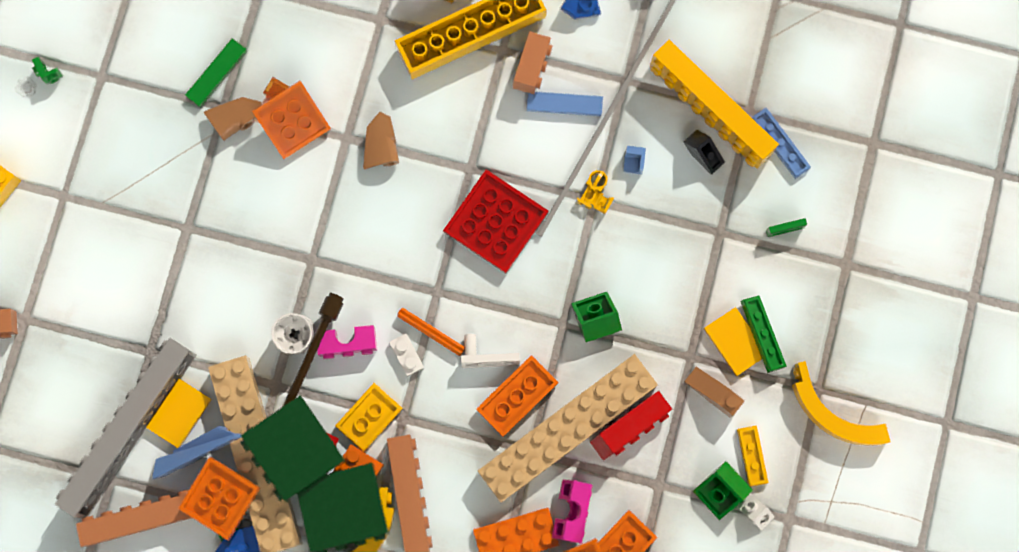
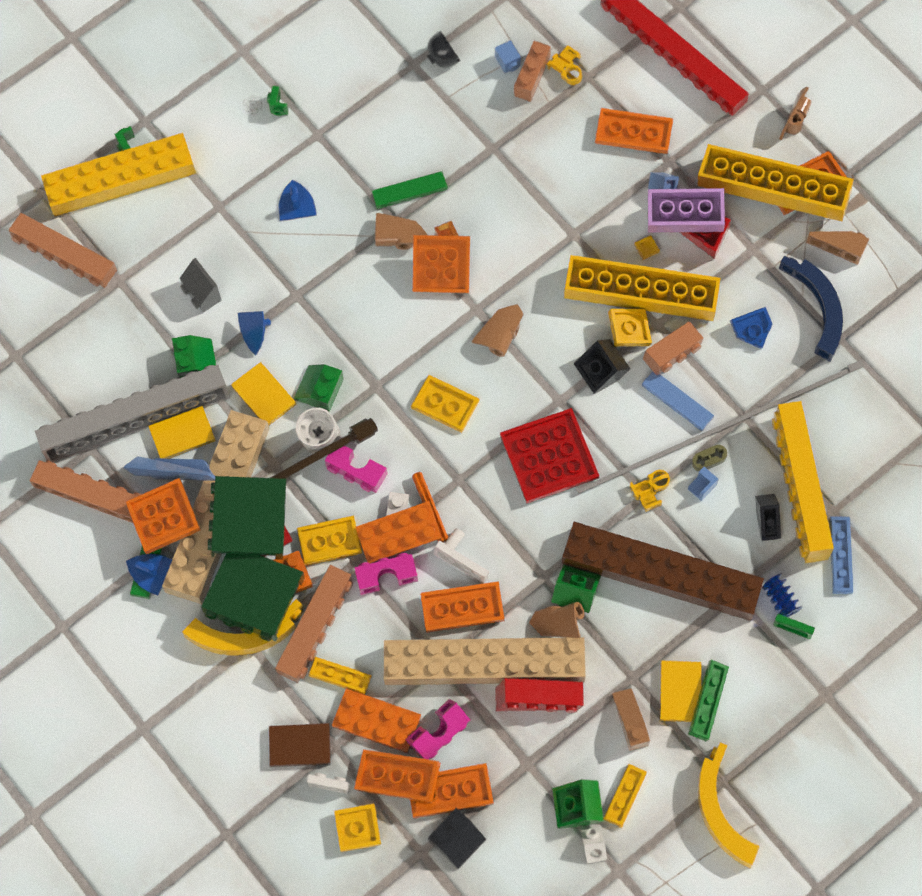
camera: 40 degrees right, 10 degrees down
(100, 278) = (199, 286): none -> dark grey slope
(127, 148) = (296, 202): none -> blue shield
(140, 341) = (192, 354): none -> green slope
(173, 283) = (253, 328): none -> blue shield
(223, 332) = (263, 394): none -> yellow tile
(265, 293) = (320, 386): none -> green slope
(379, 235) = (445, 403): none -> yellow tile
(422, 371) = (398, 532): none -> orange plate
(446, 398) = (369, 574): none -> dark pink arch
(460, 522) = (340, 675): none -> yellow tile
(484, 69) = (629, 327): none -> yellow plate
(484, 116) = (601, 365): none -> black slope
(603, 354) = (558, 621): none -> medium nougat panel
(627, 136) = (707, 454): none -> olive beam
(654, 254) = (662, 571): none -> reddish brown brick
(761, 210) = (781, 596): none -> clear blue piece

